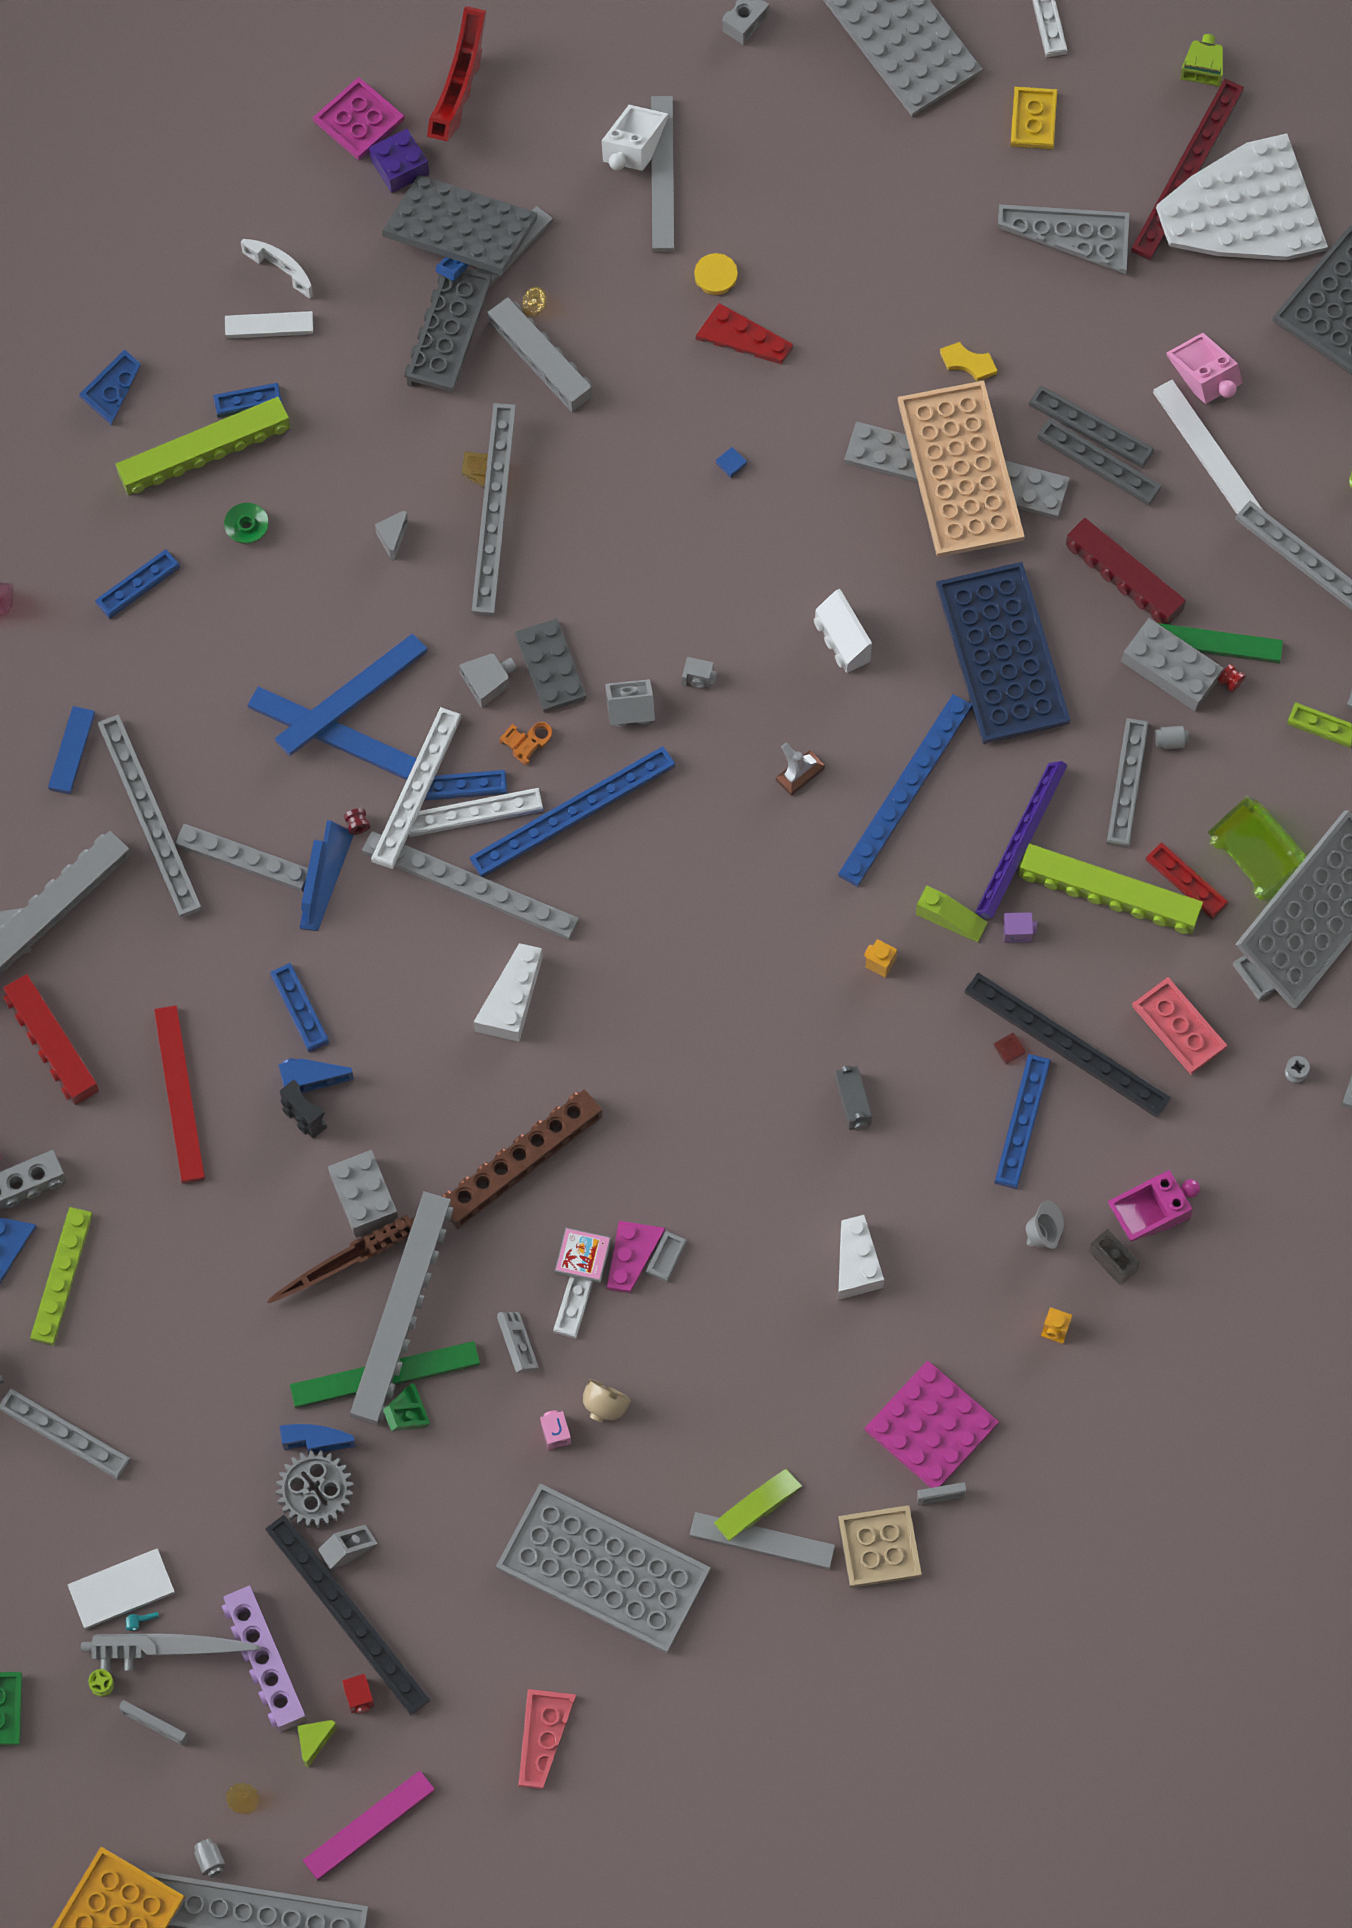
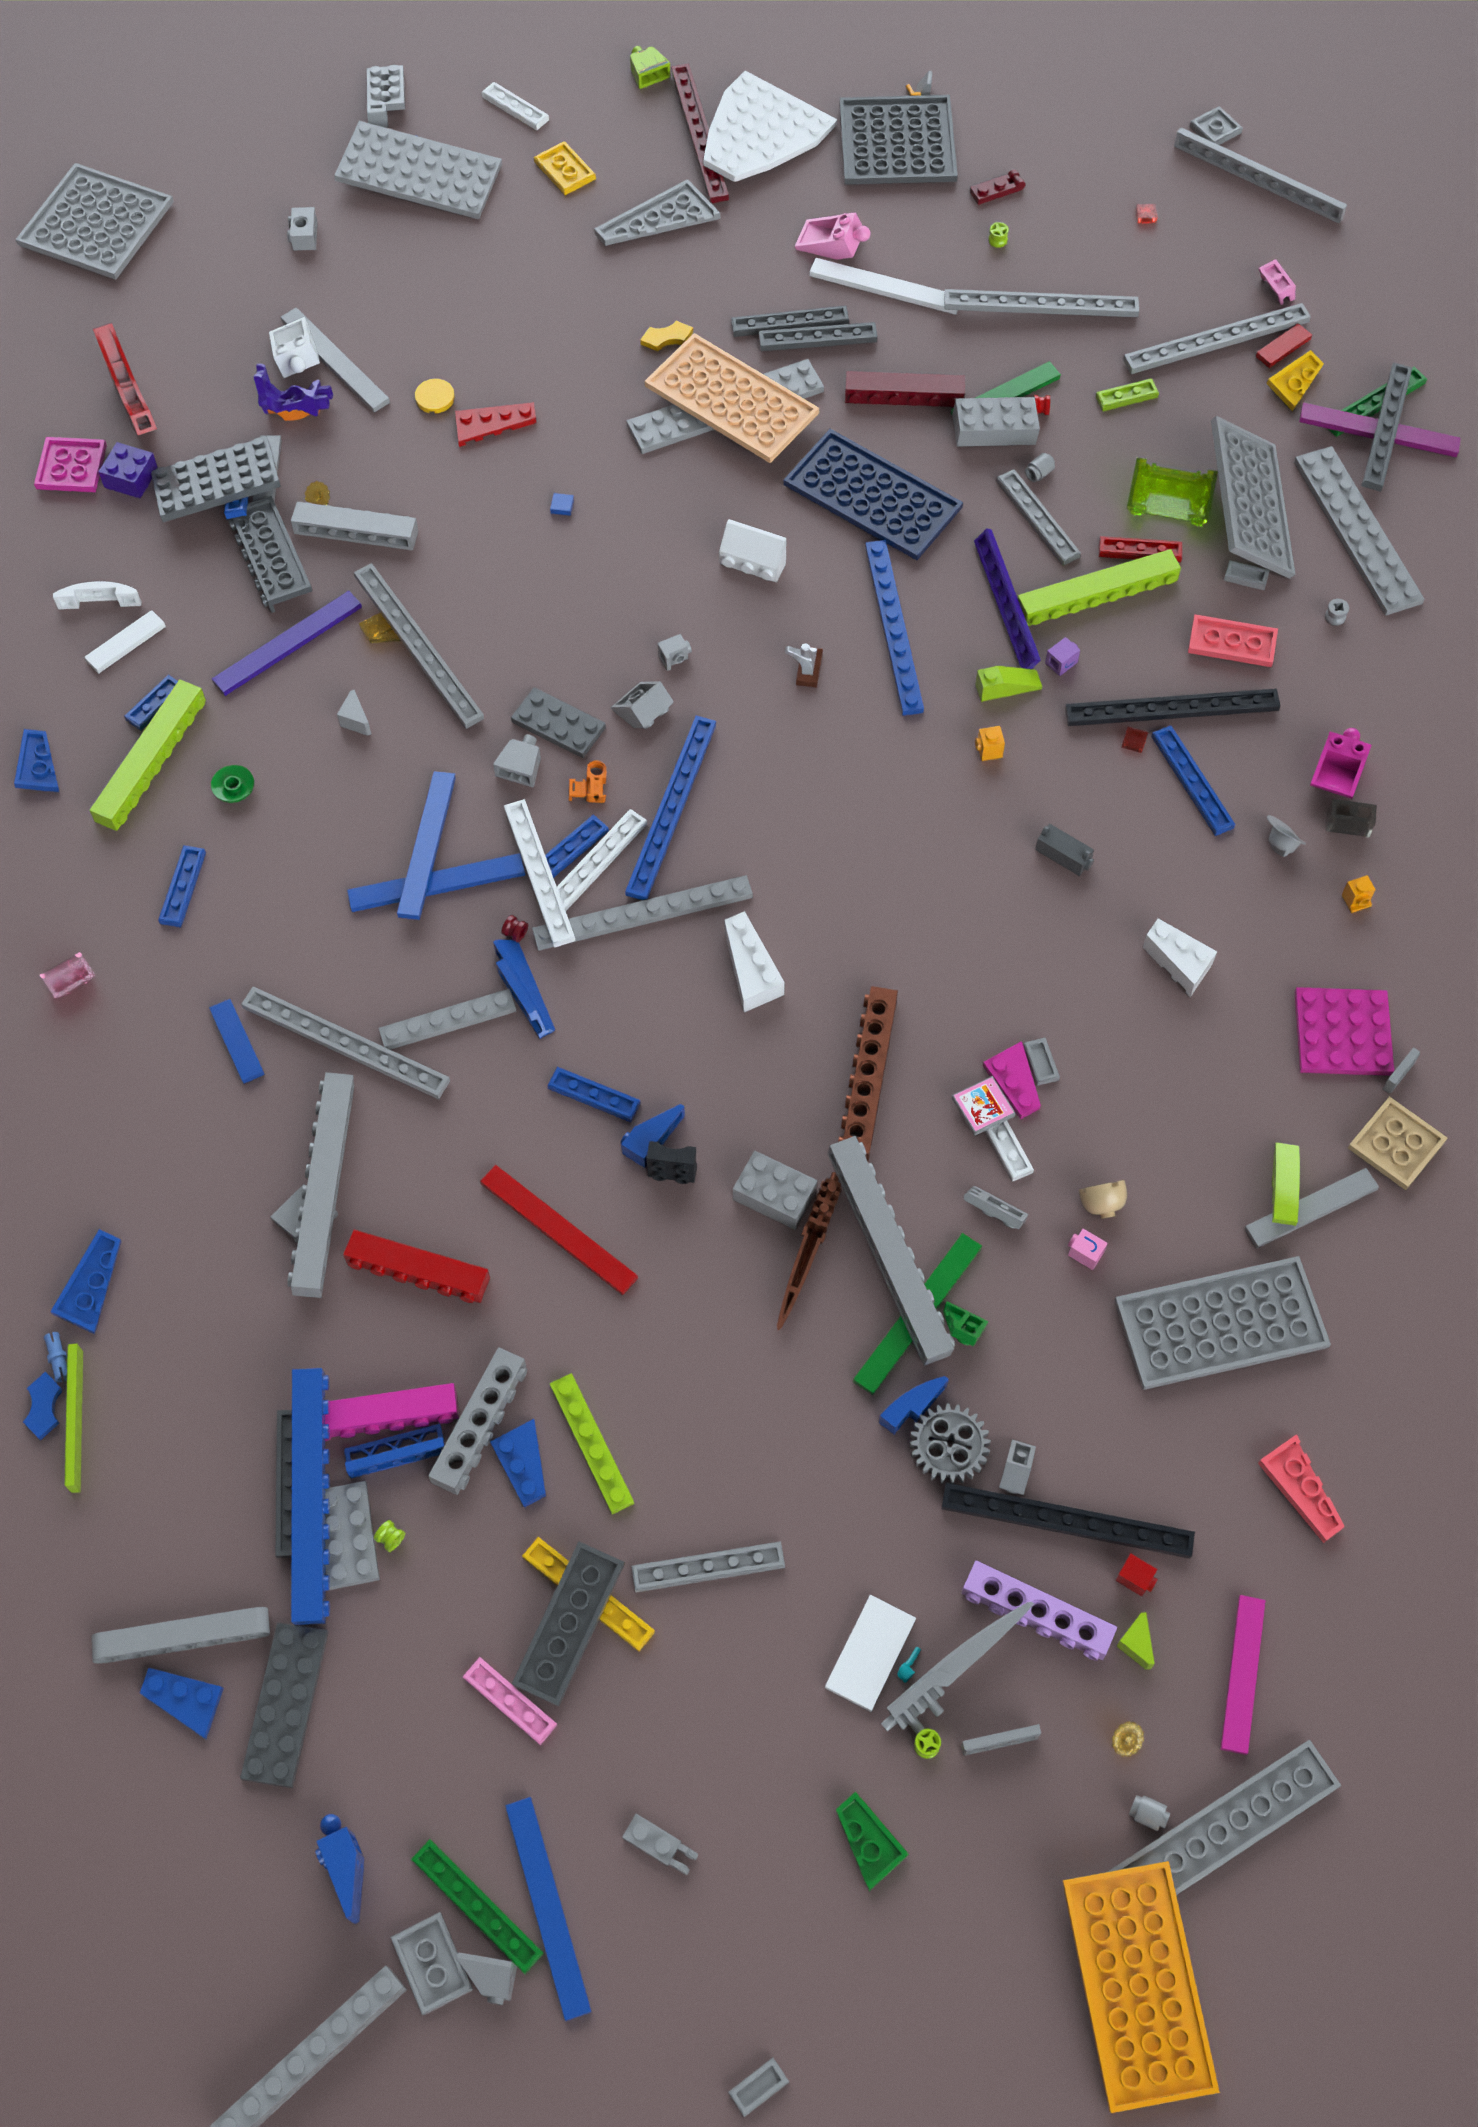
camera: 40 degrees left, 5 degrees down
(396, 424) = (286, 643): none -> tile
(592, 201) = (295, 401): none -> dark purple hips

